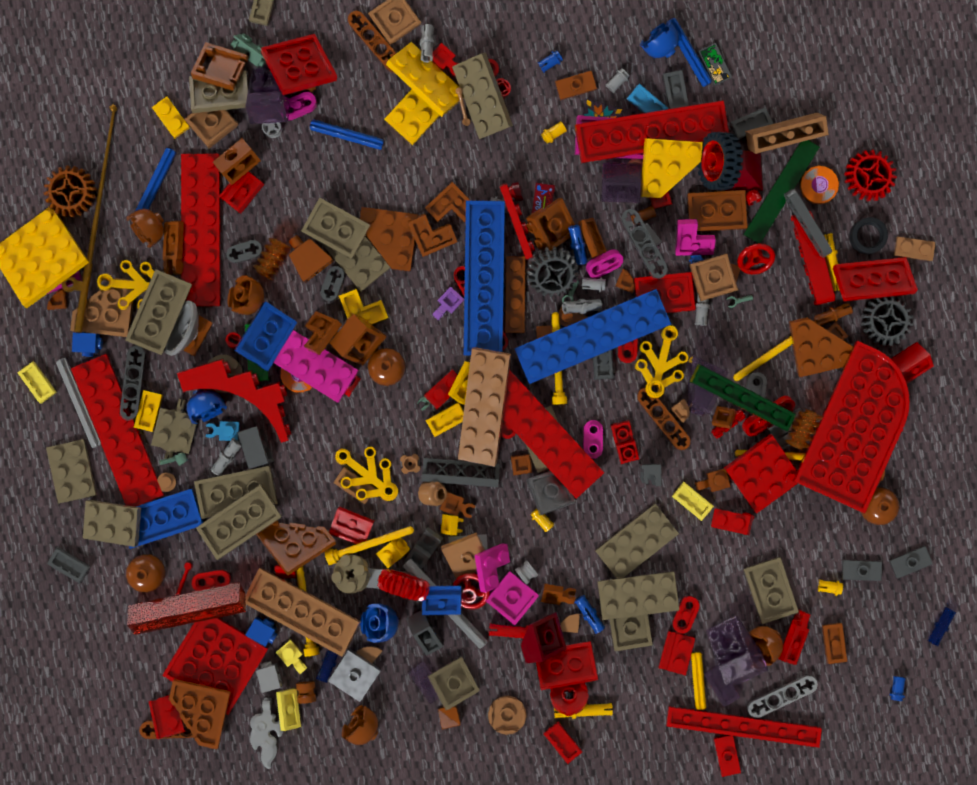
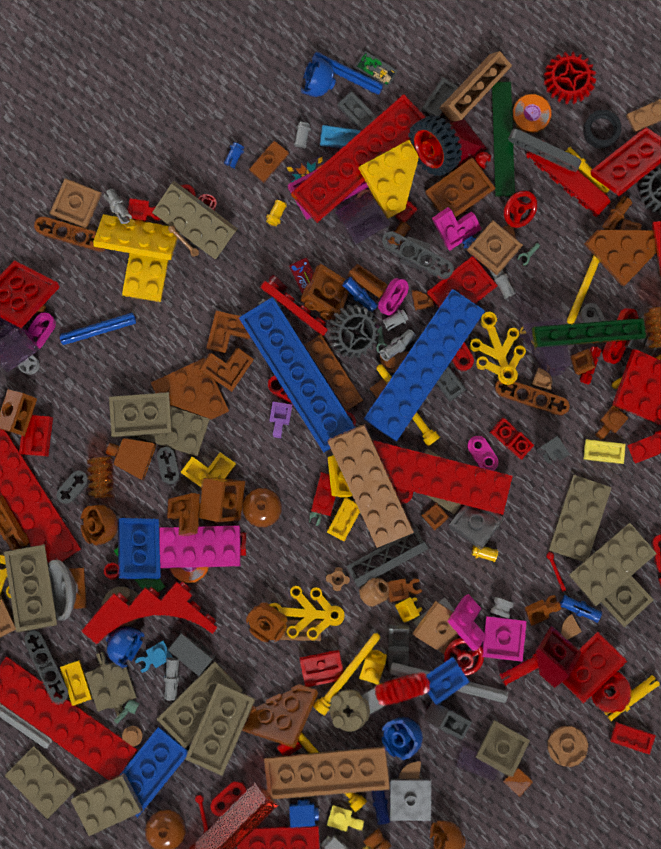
camera: 30 degrees left, 5 degrees down
(338, 463) = (267, 613): none -> dark orange plate
(593, 556) = (550, 556): none -> red hinge

